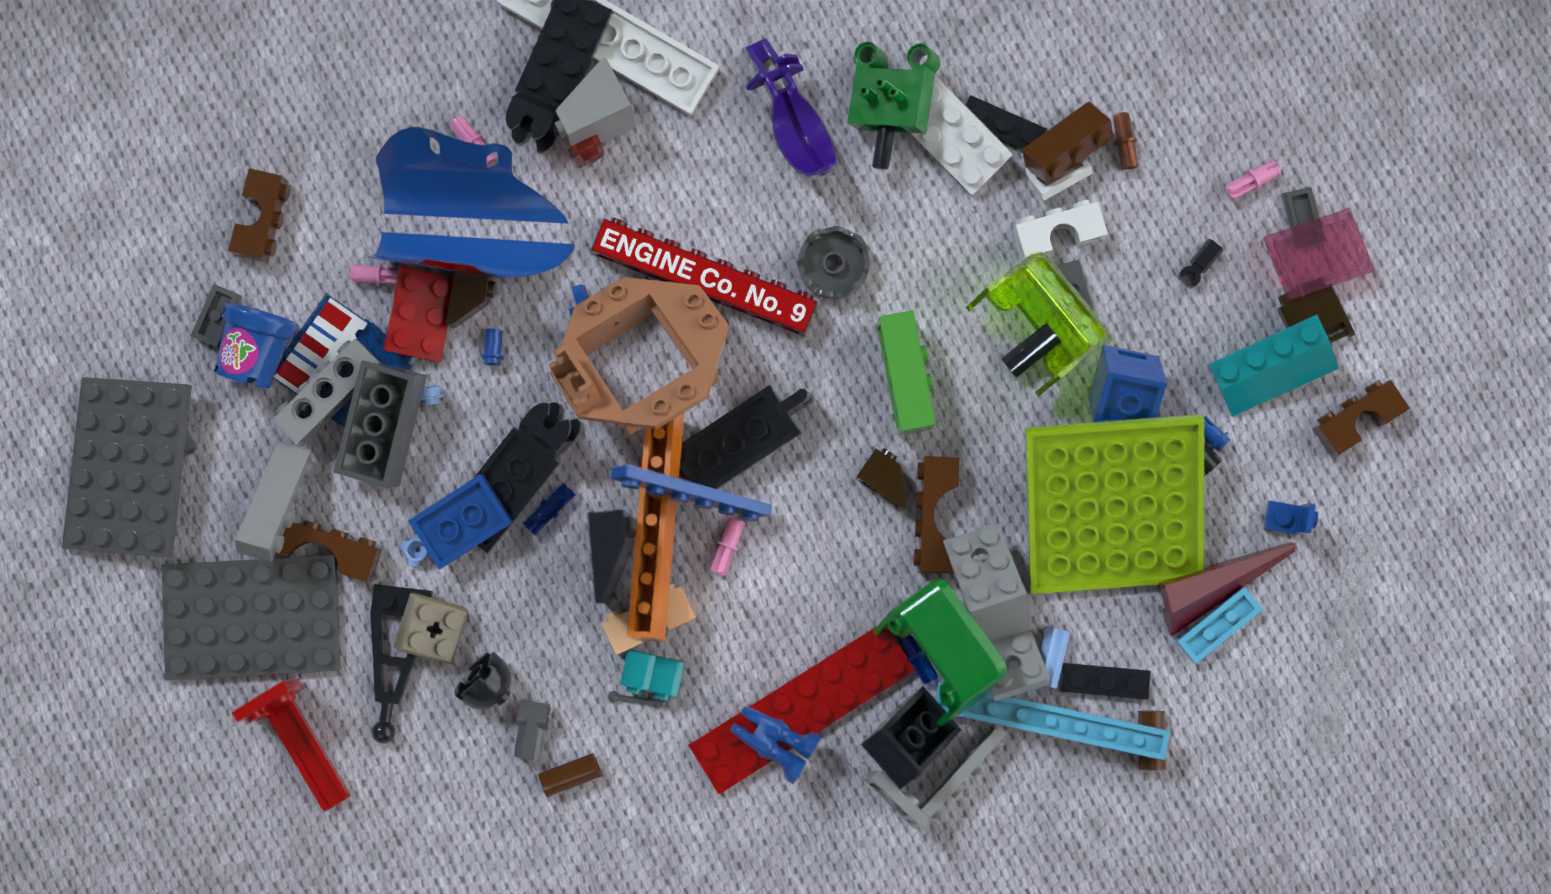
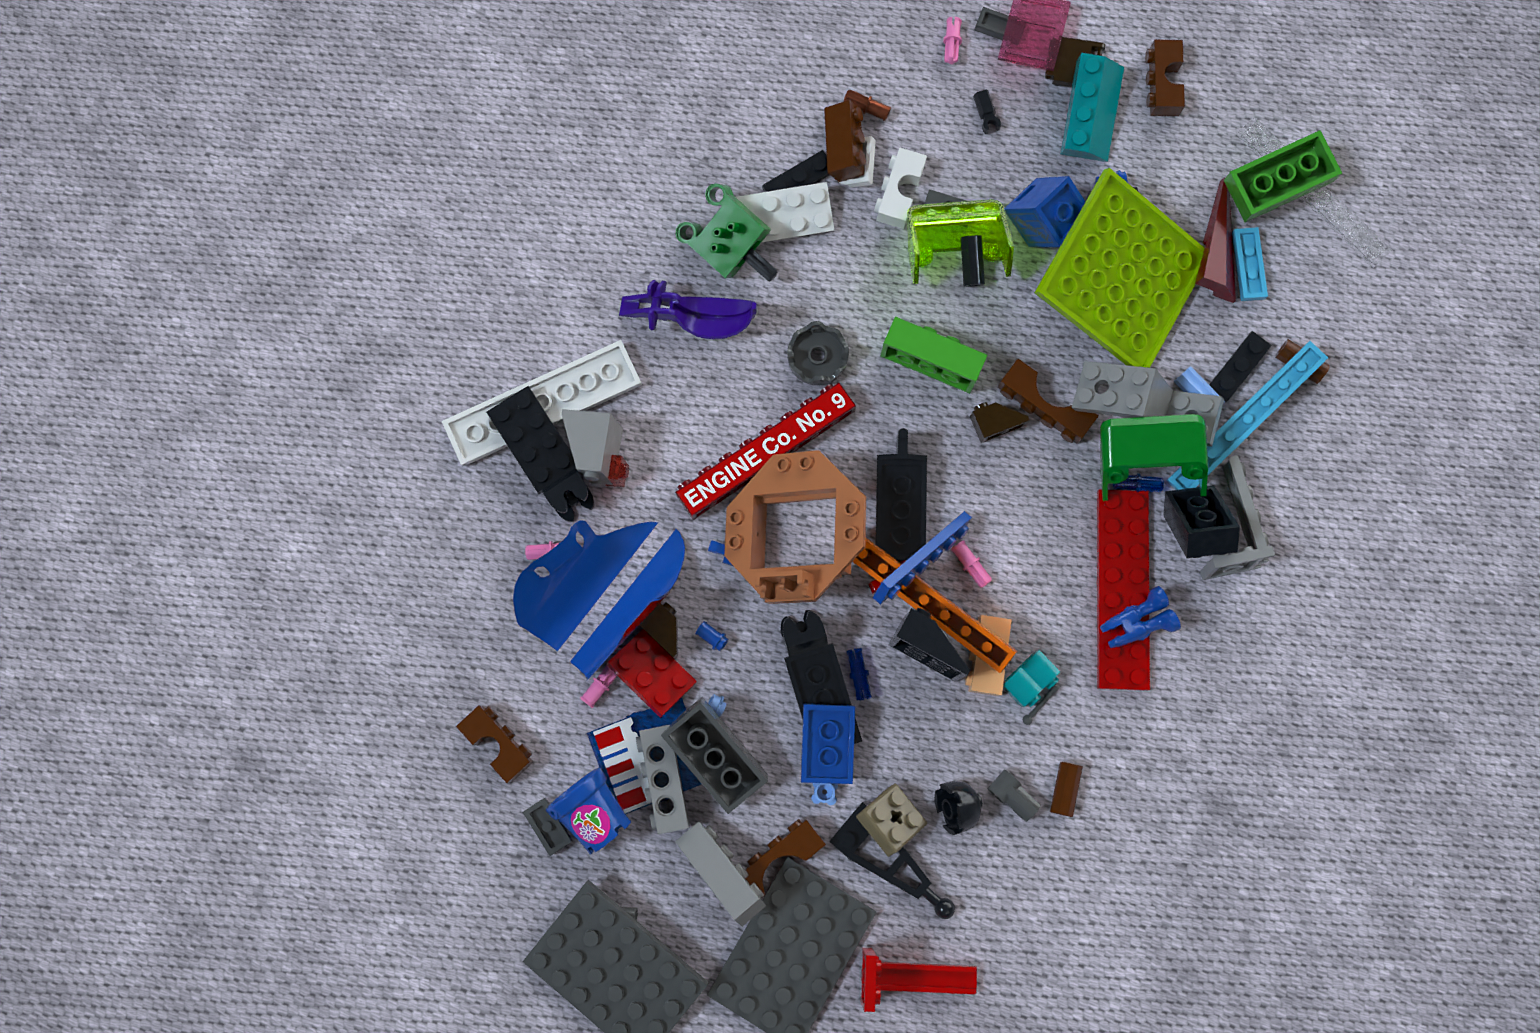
camera: 55 degrees left, 5 degrees down
(1290, 518) = (1207, 166): blue bracket -> none
(1328, 598) = (1282, 176): none -> bright green brick

